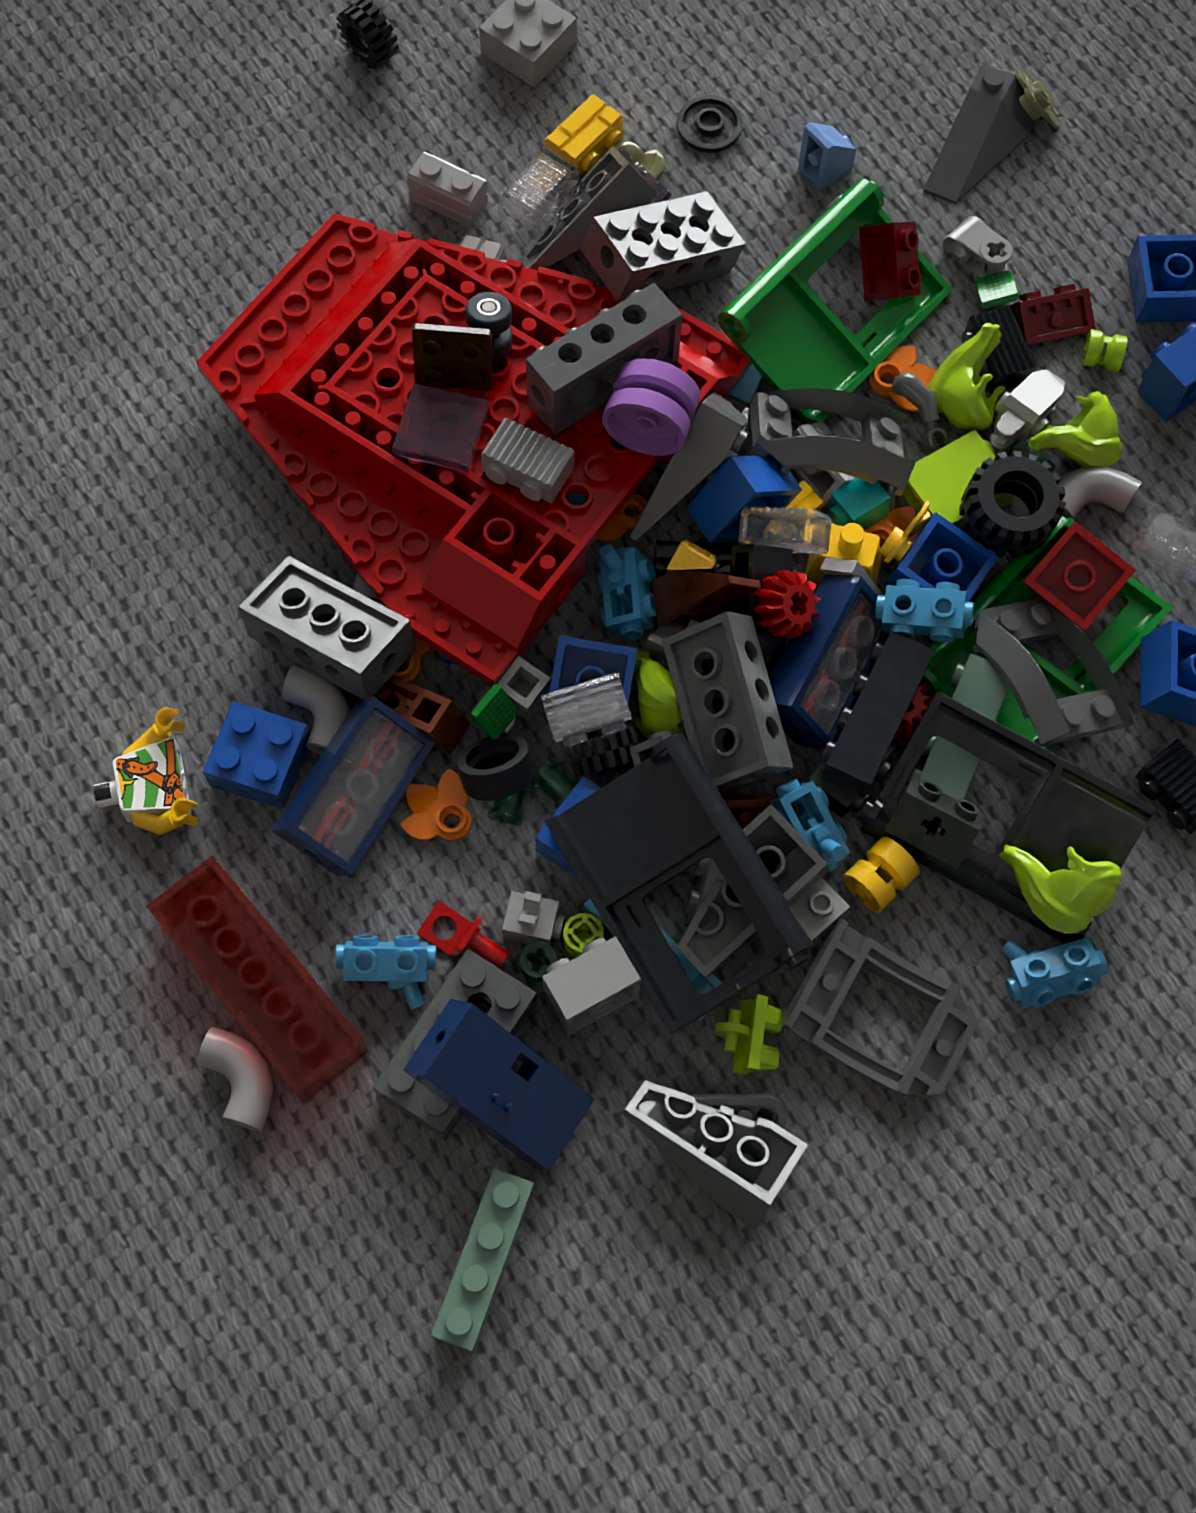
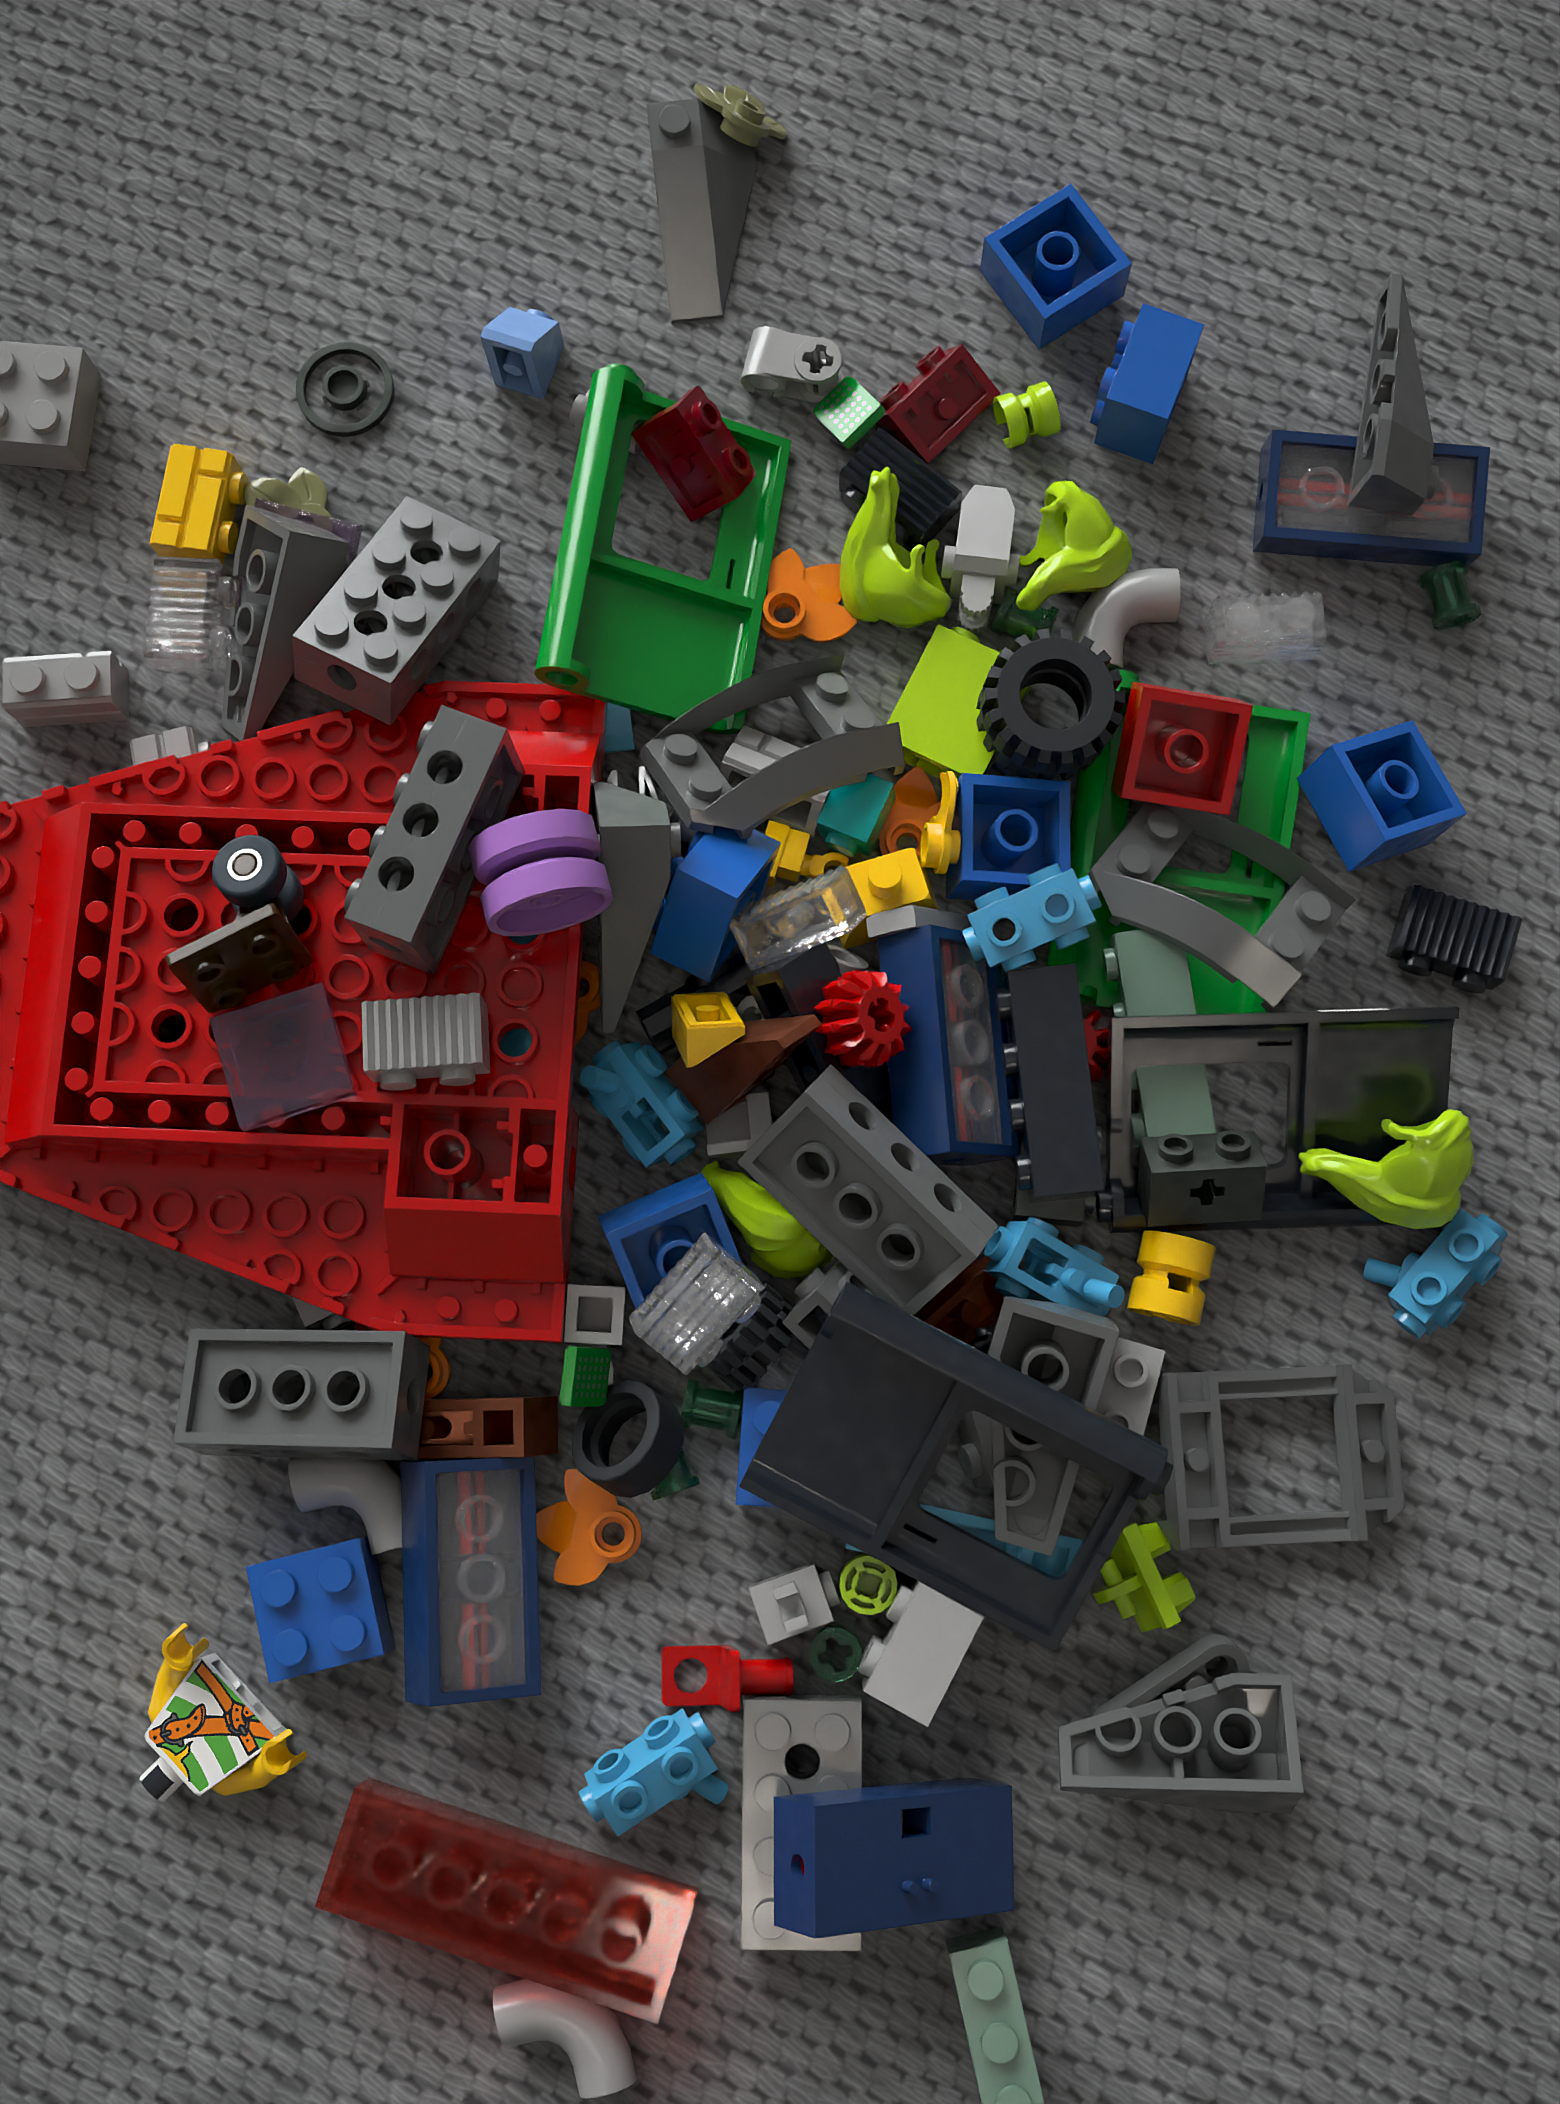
camera: 25 degrees left, 10 degrees up
(925, 400) = (850, 618): dark grey arm -> none

